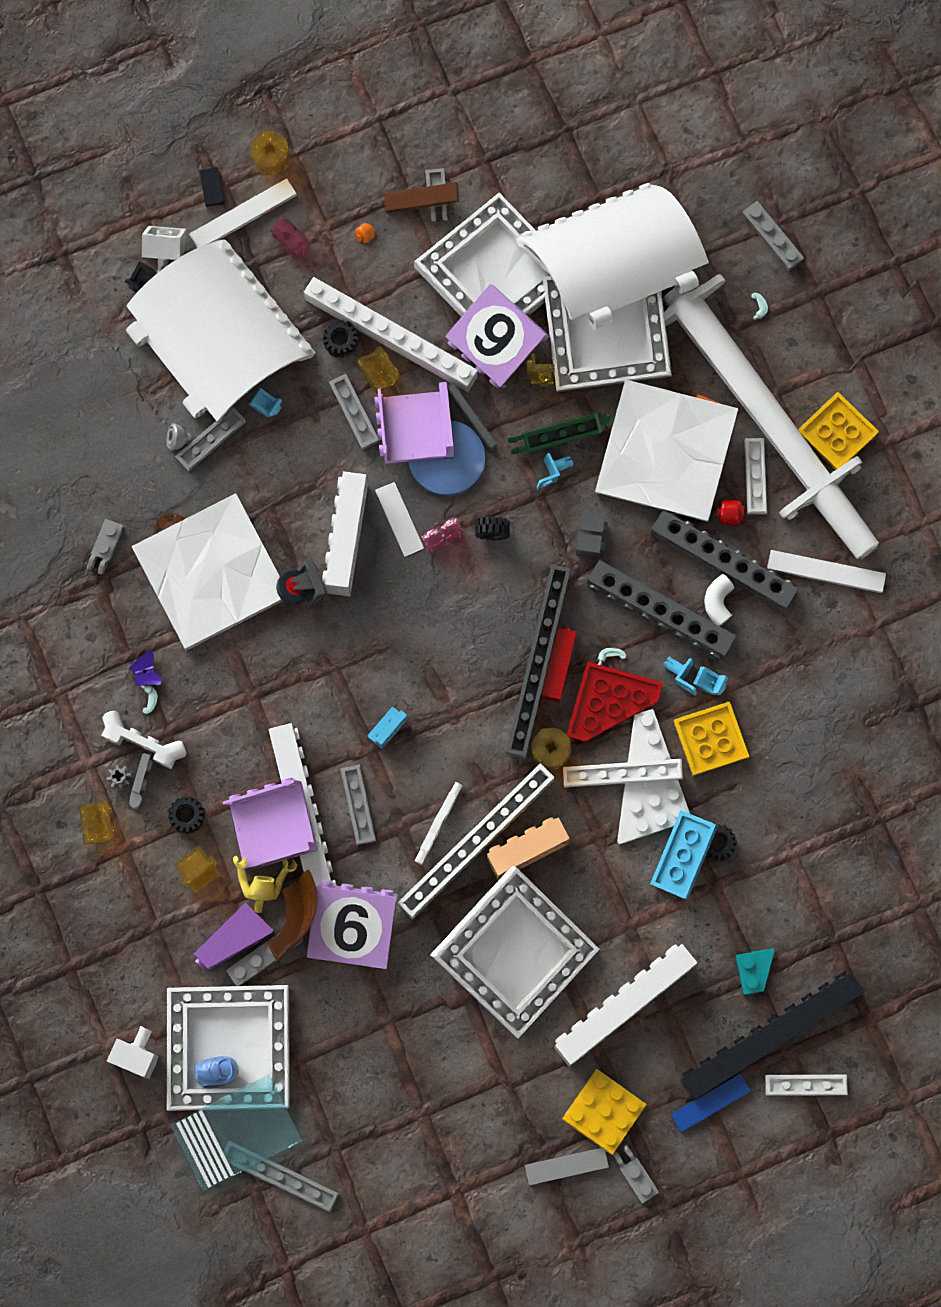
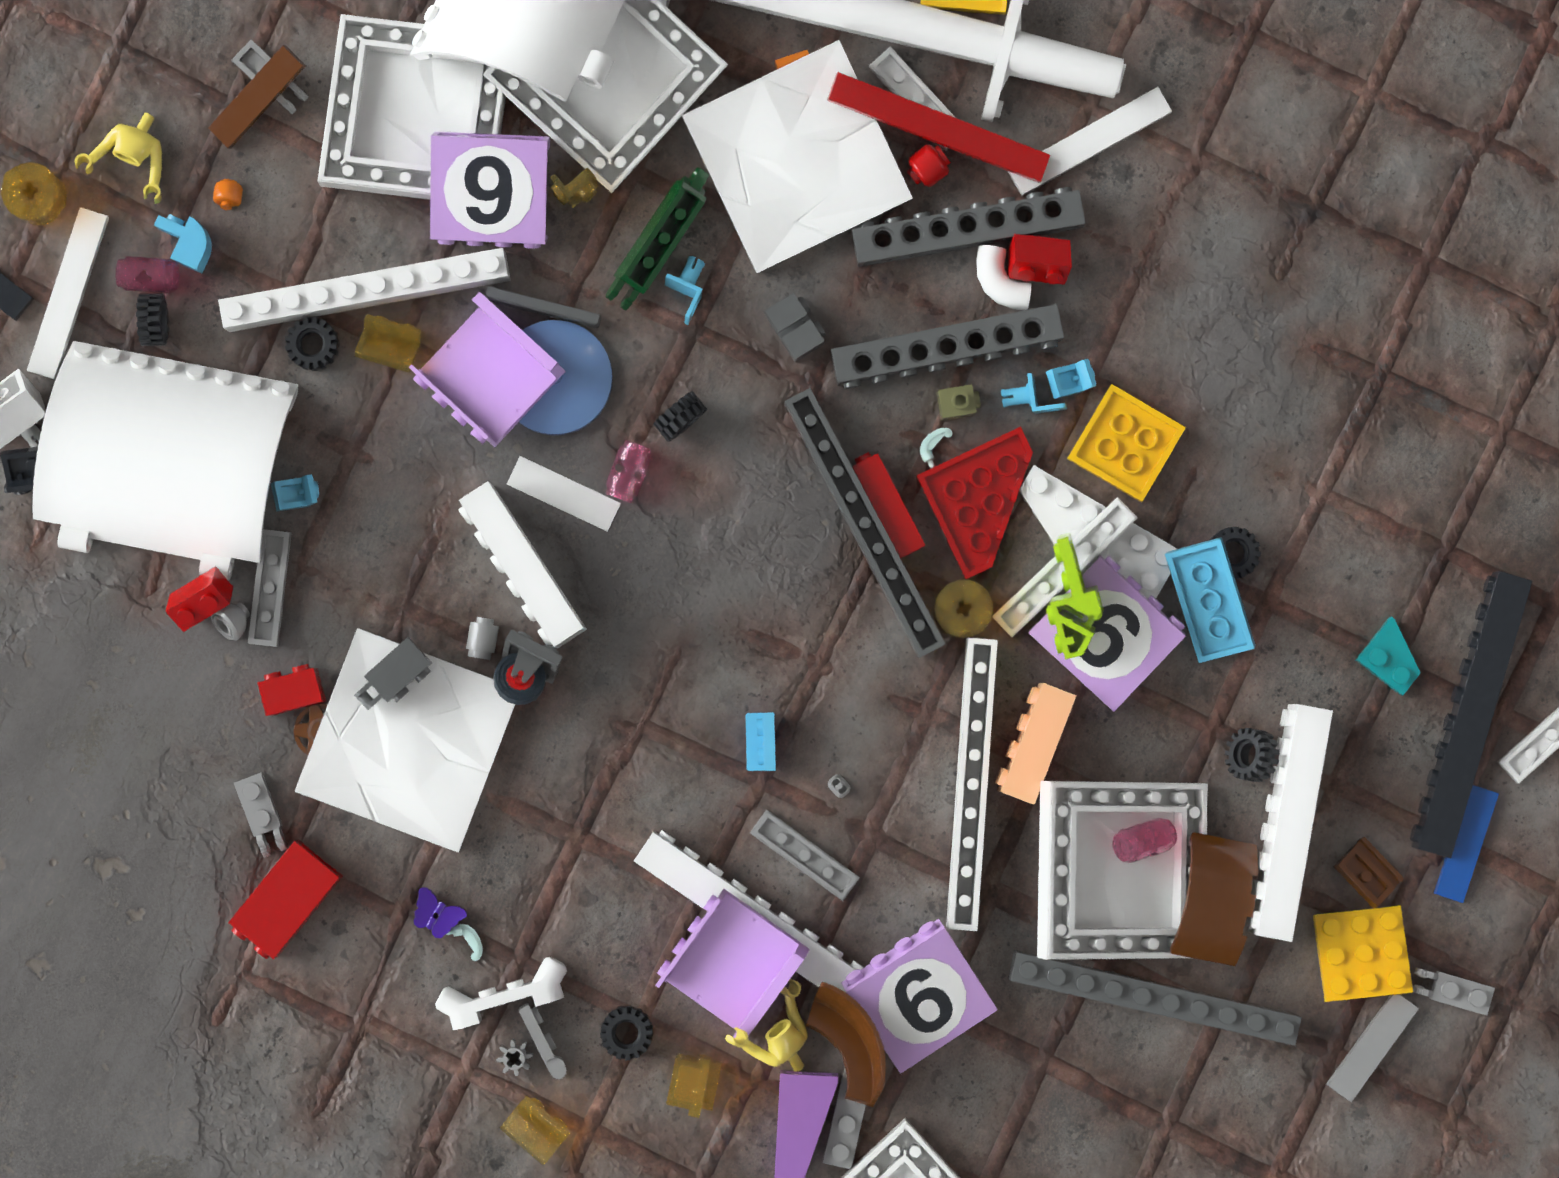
camera: 45 degrees left, 10 degrees up
(77, 598) = (284, 900): none -> red brick
(171, 413) = (199, 599): none -> red brick
(175, 498) = (291, 691): none -> red brick
(233, 530) = (395, 673): none -> dark grey brick
(272, 260) = (152, 319): none -> black tyre
(293, 554) = (482, 638): none -> light grey brick
(327, 241) = (193, 244): none -> medium azure brick
(338, 171) = (131, 146): none -> light yellow piece
(353, 411) = (403, 415): light grey plate -> none
(407, 785) = (839, 786): none -> light grey rock
(440, 818) = (911, 798): white piece -> none
(473, 1036) = (1155, 997): none -> dark grey brick
(539, 944) = (1144, 840): none -> clear pink piece
(550, 1011) = (1217, 900): none -> reddish brown panel
(594, 804) = (1073, 632): none -> lime piece
(615, 824) = (1127, 638): none -> panel
(635, 953) = (1263, 759): none -> black tyre
(641, 643) = (958, 402): none -> olive brick
(644, 1071) = (1368, 872): none -> reddish brown plate
(746, 606) = (1039, 259): none -> red brick
(752, 496) = (938, 127): none -> red tile

